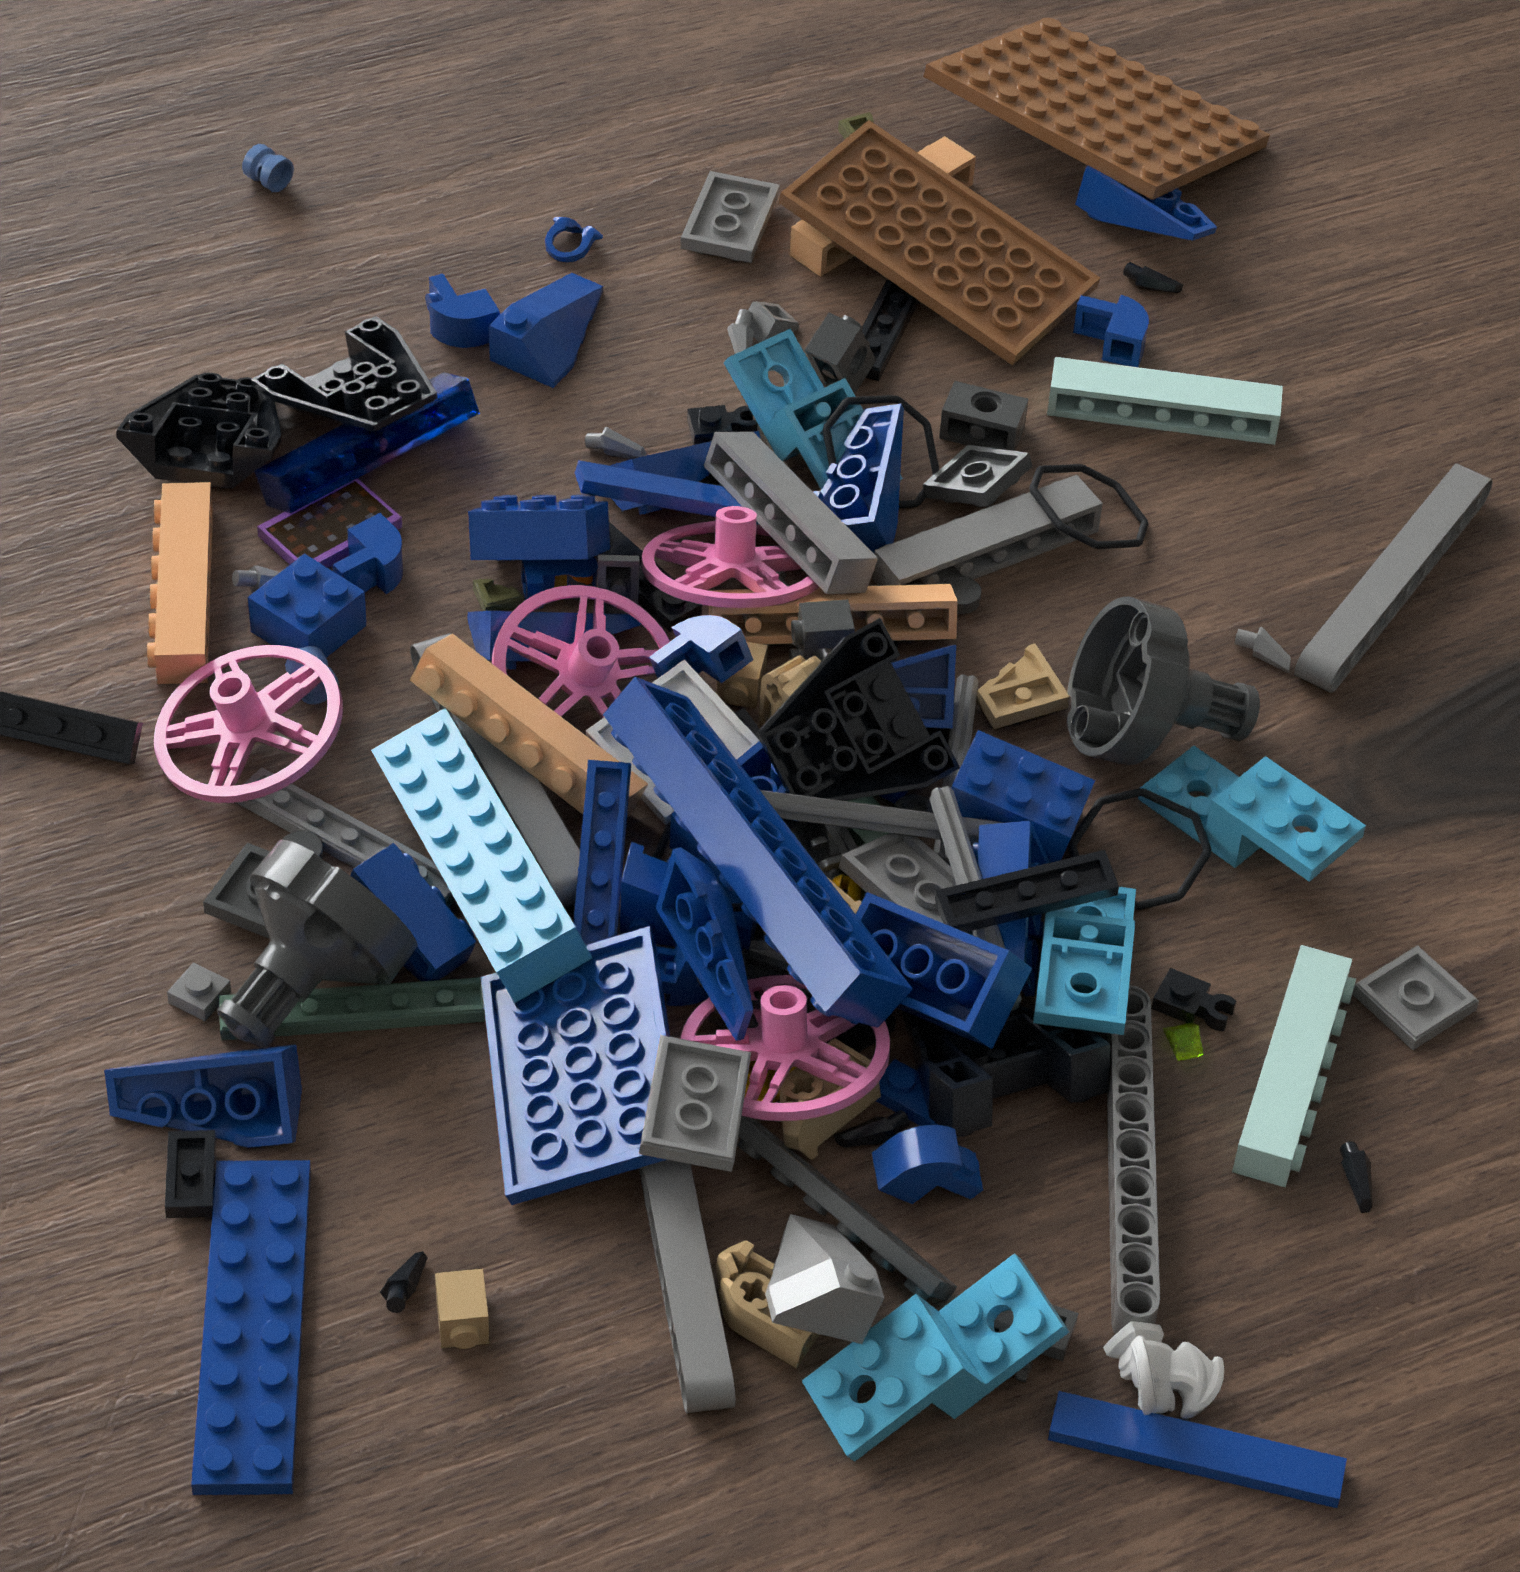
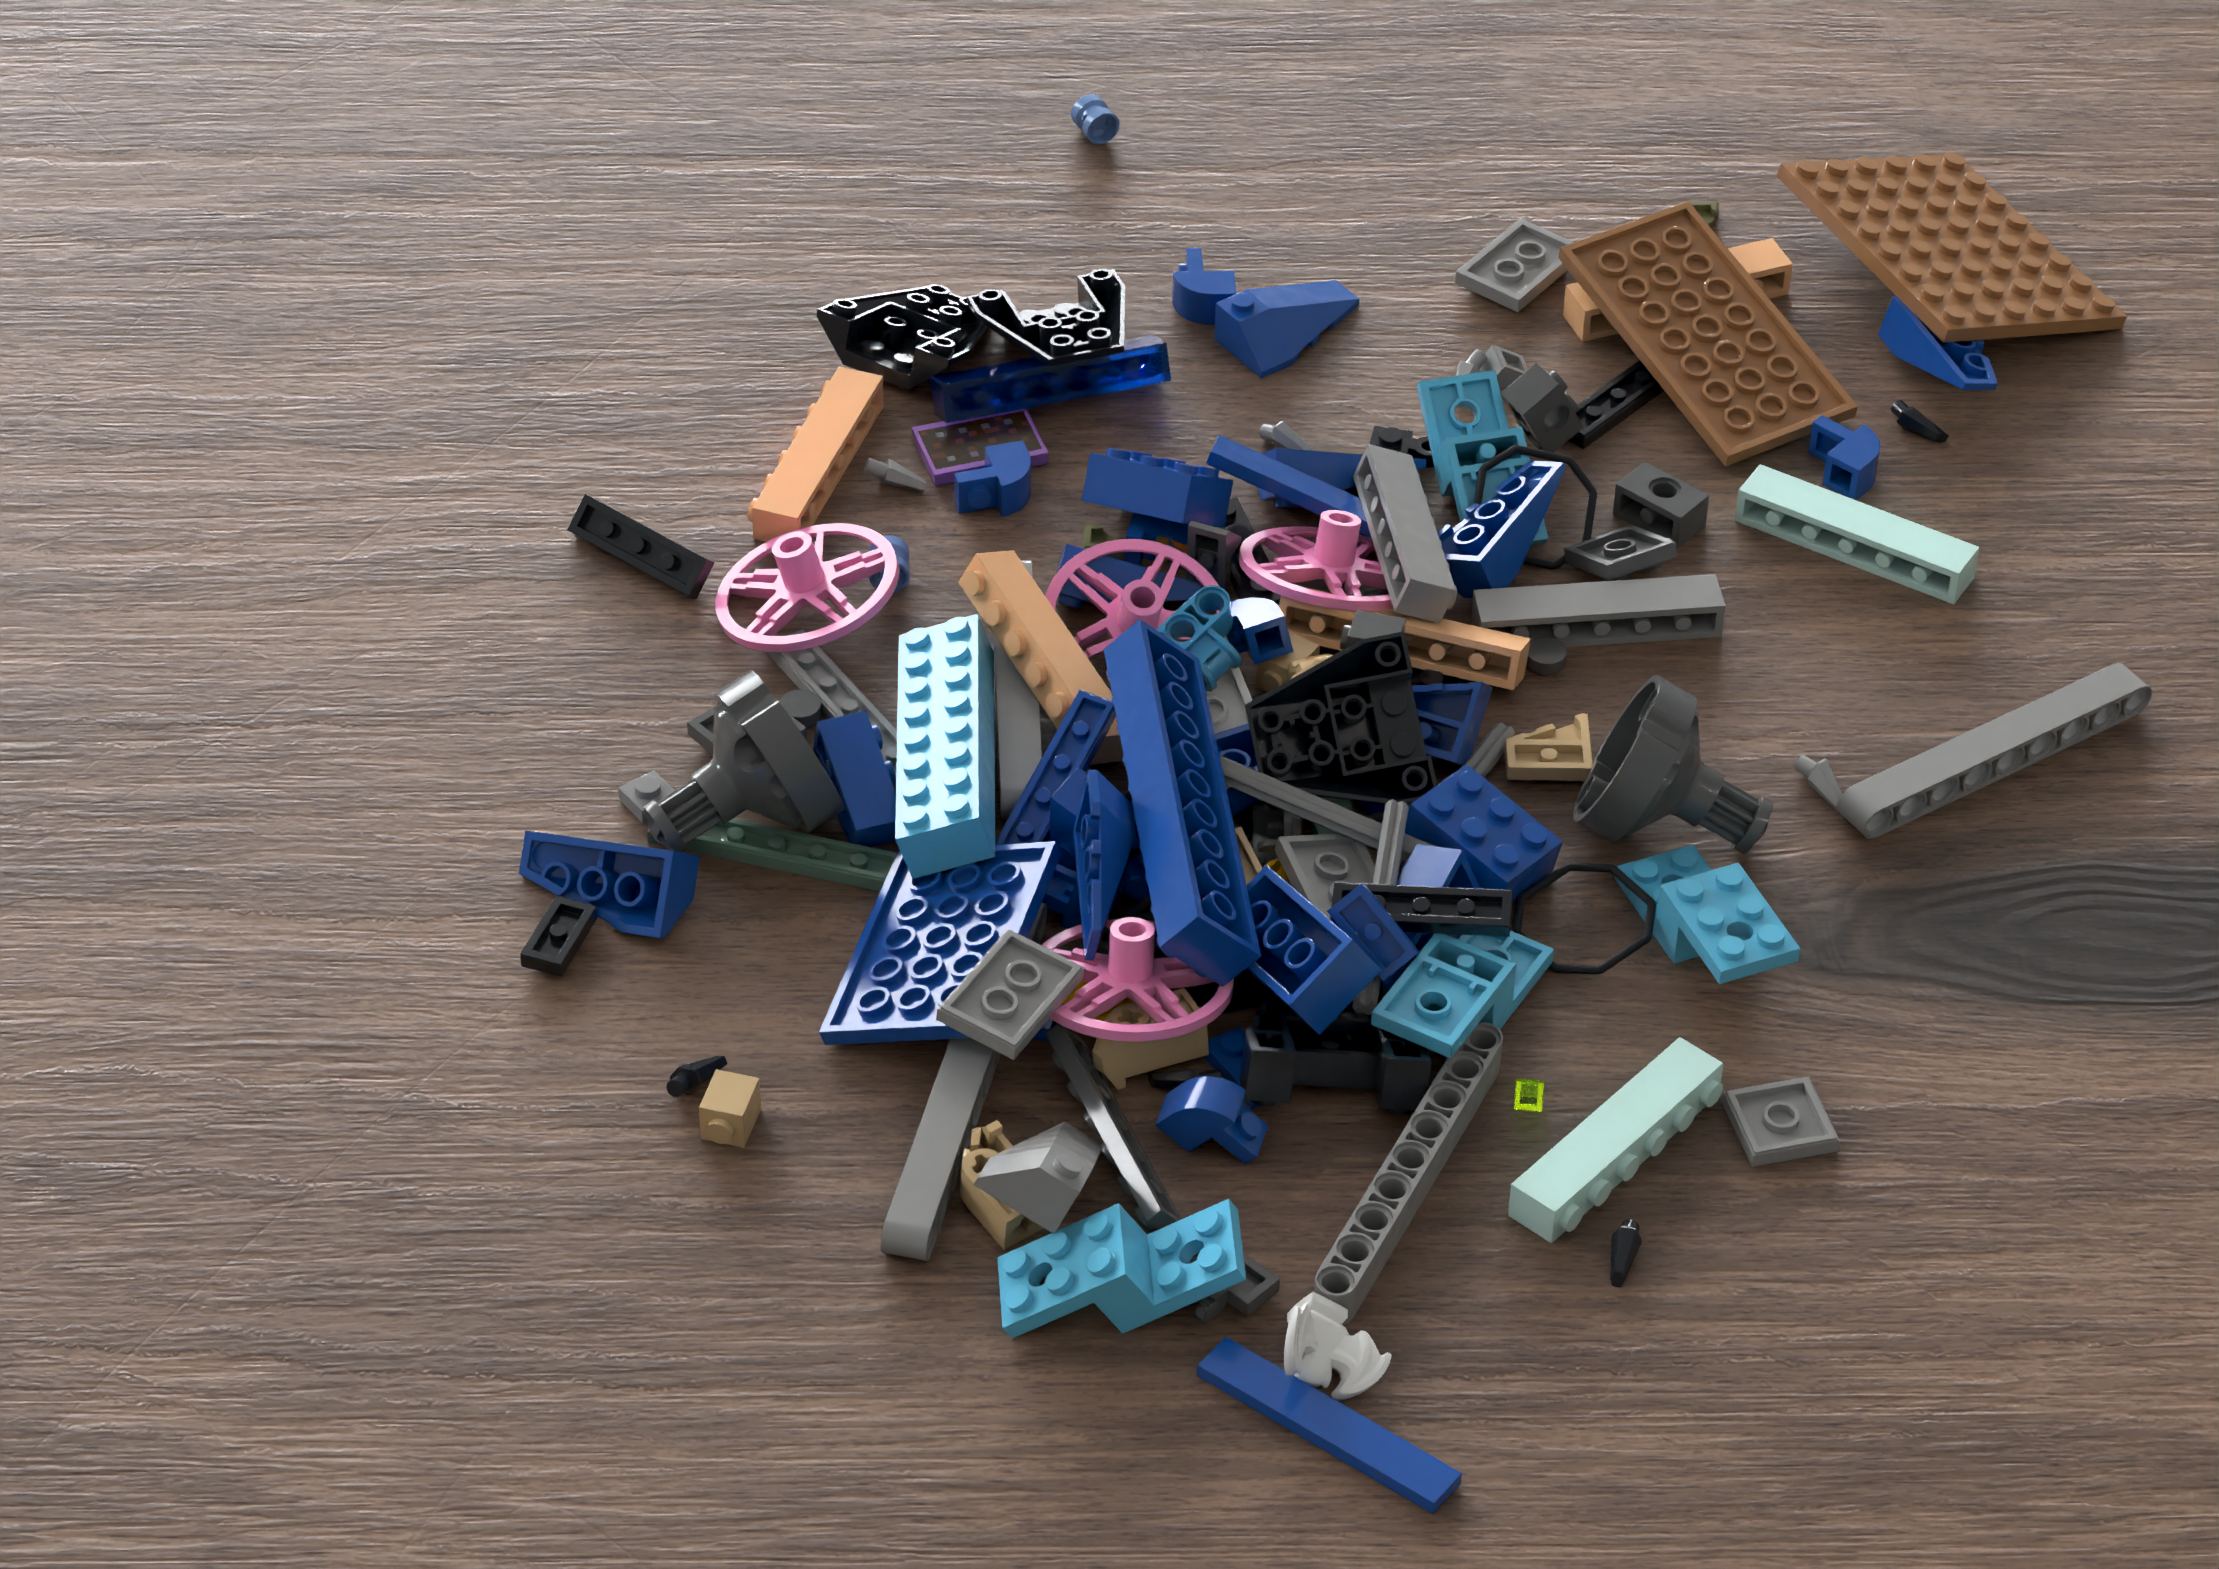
camera: 25 degrees right, 5 degrees down
(252, 1329) = (547, 1072): blue plate -> none
(307, 608) = (915, 505): blue brick -> none
(567, 224) = (1368, 251): blue piece -> none
(674, 665) = (1206, 632): none -> dark azure beam
(994, 923) = (1373, 930): none -> blue plate
(1075, 534) = (1695, 638): black piece -> none
(1189, 997) = (1554, 1057): black plate -> none

